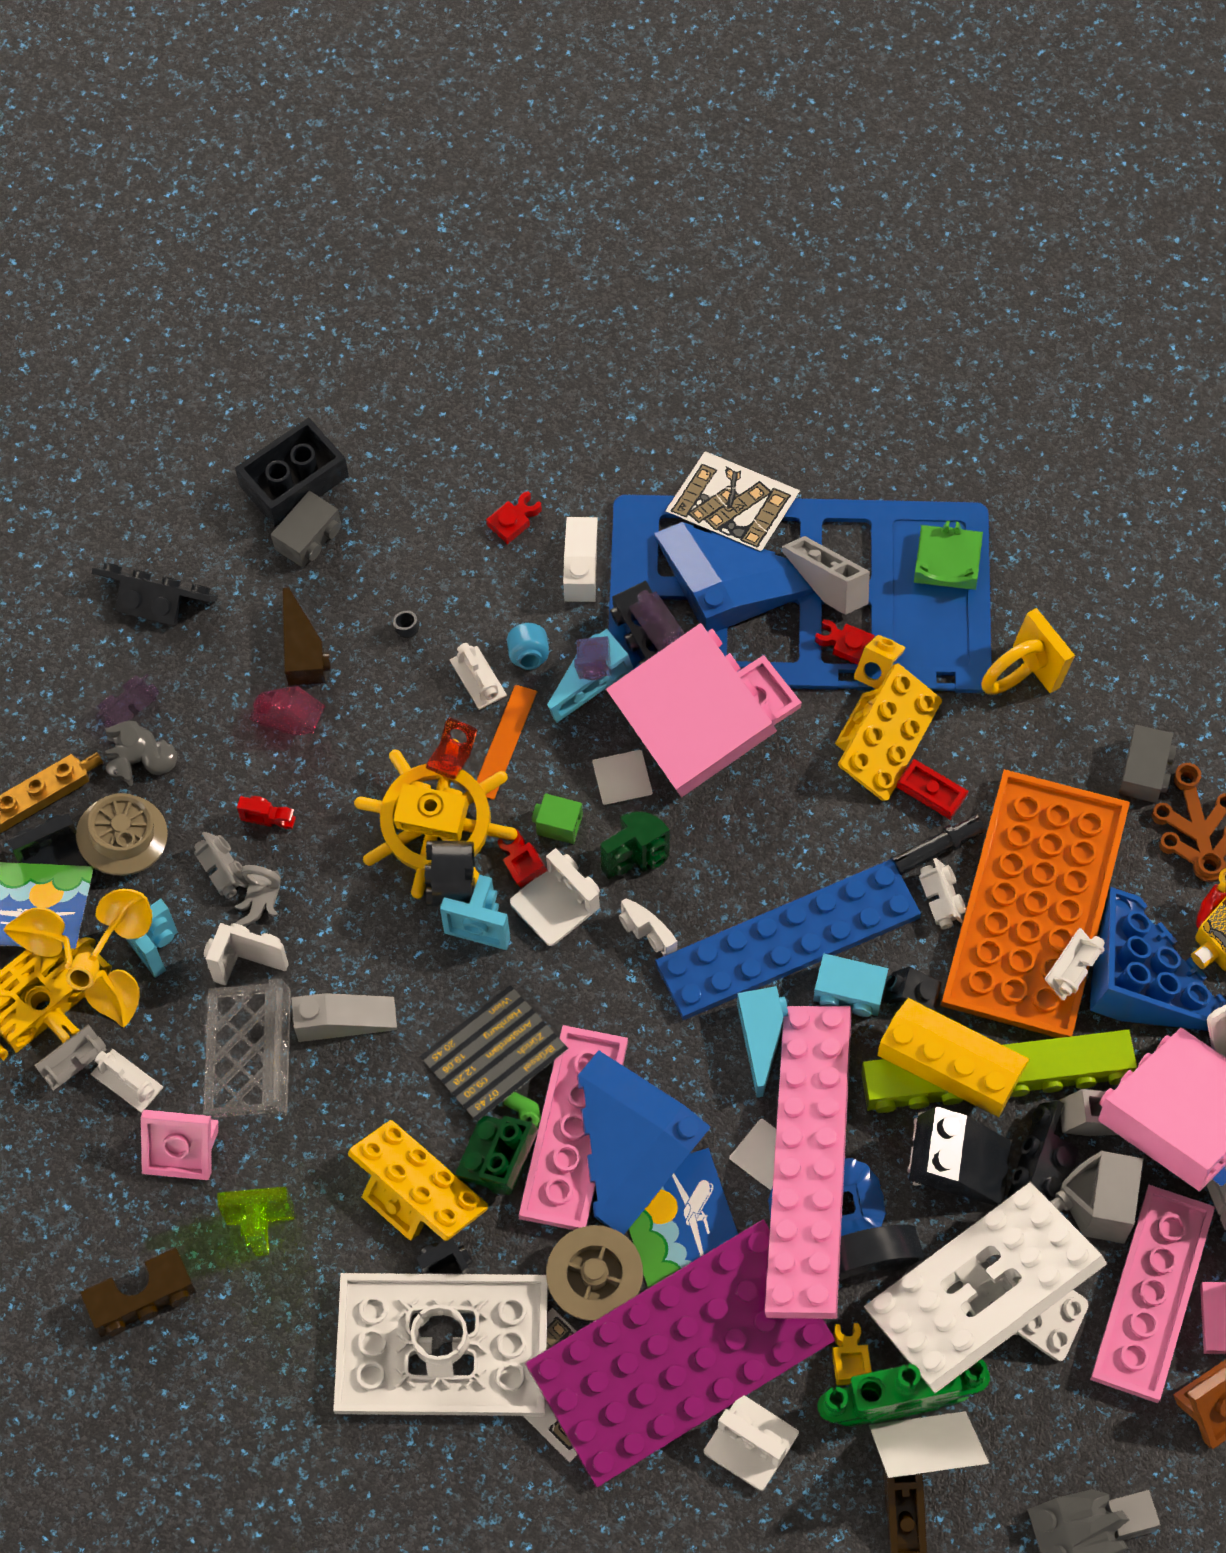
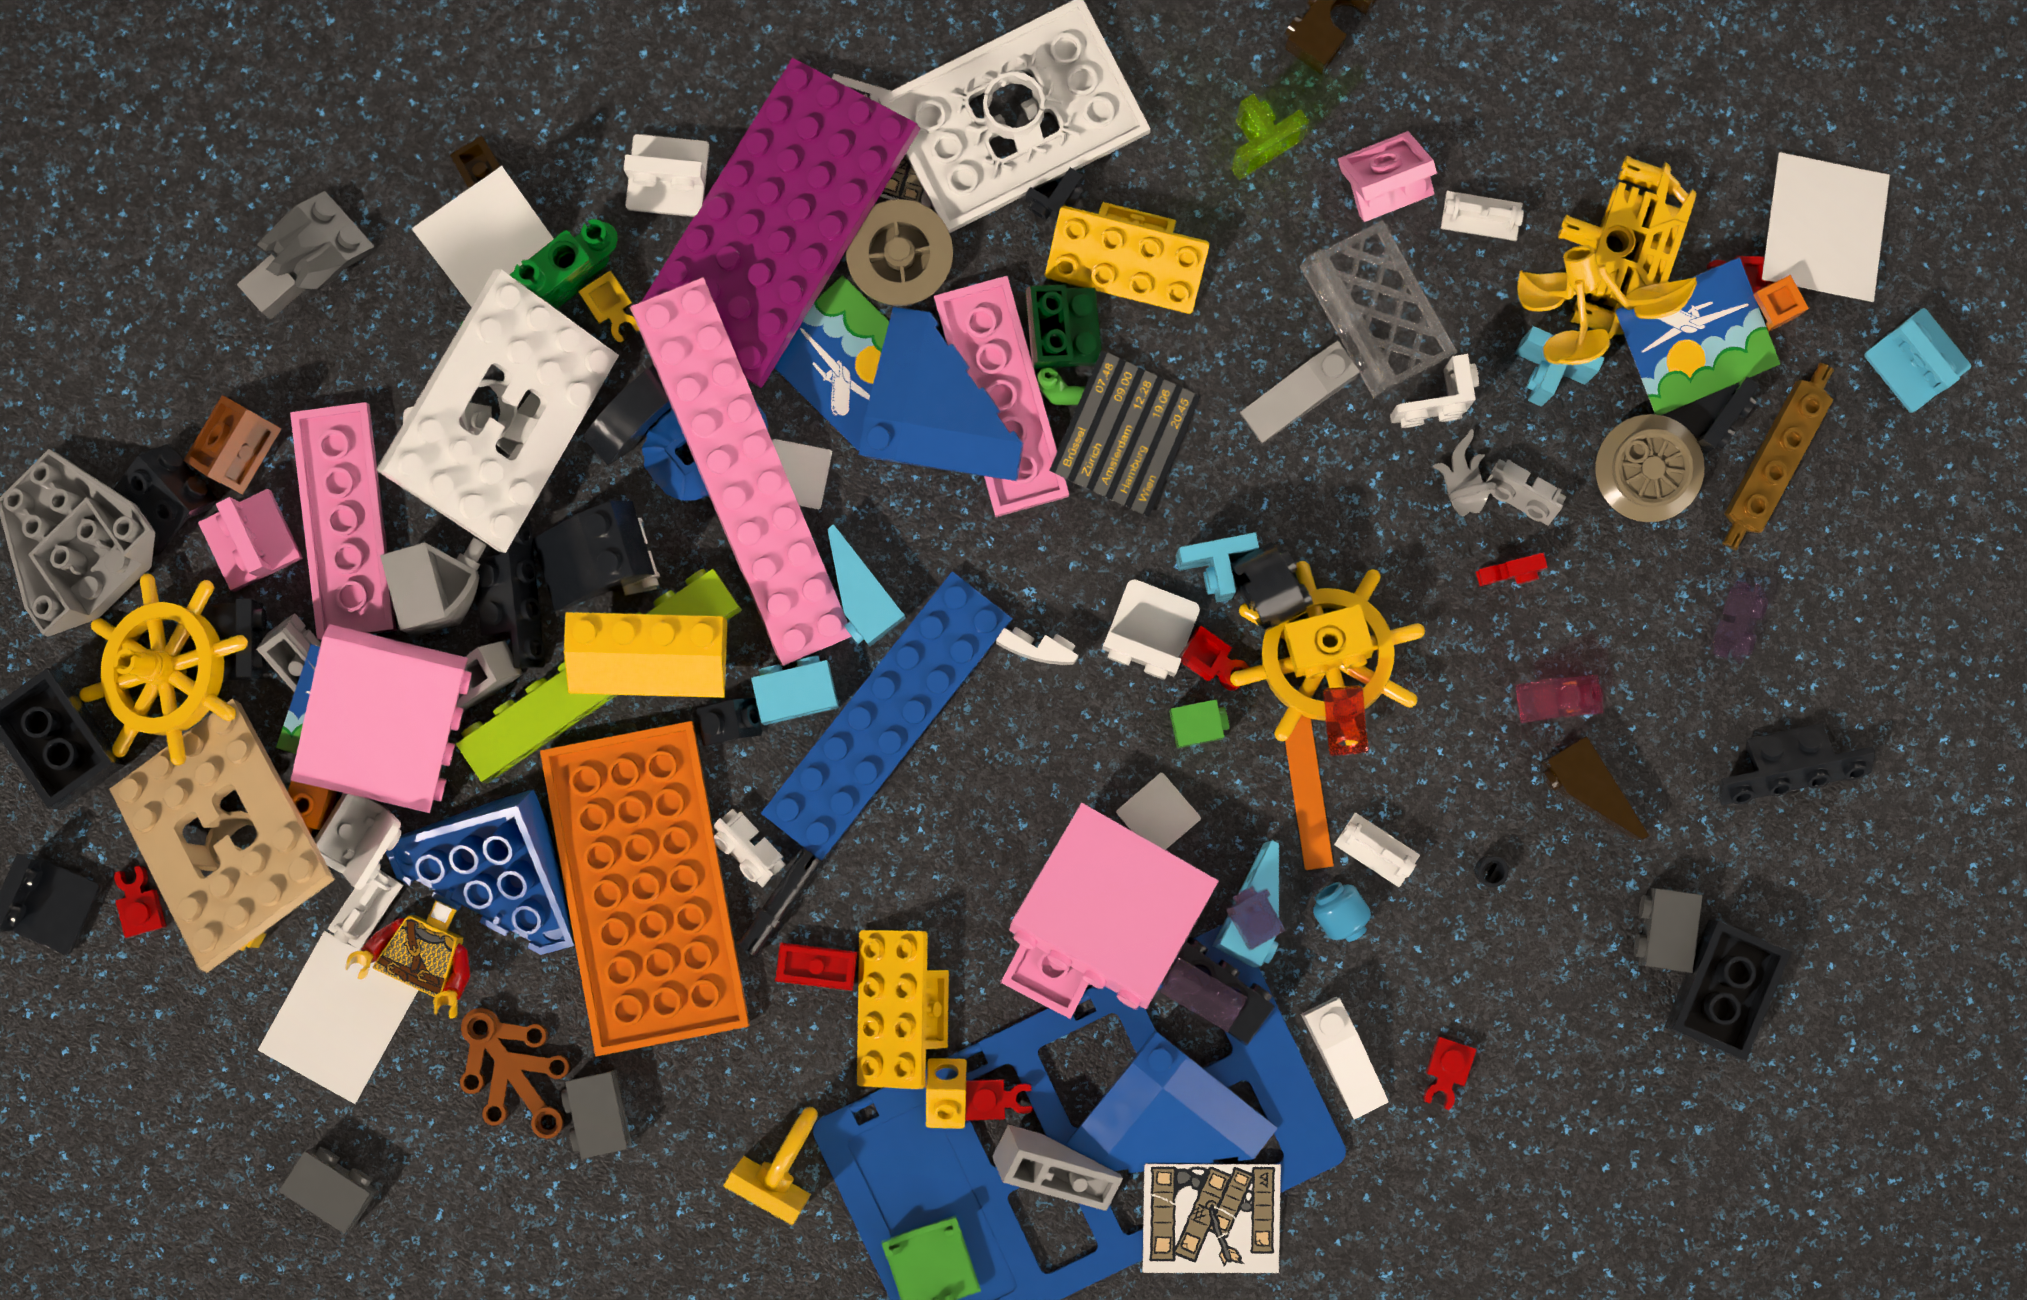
camera: 155 degrees right, 20 degrees up
(70, 1057) = (1549, 212): light grey hinge -> none
(137, 745) = (1697, 577): dark grey animal -> none
(642, 841) = (1091, 736): dark green brick -> none
(1072, 963) = (572, 808): white hinge -> none

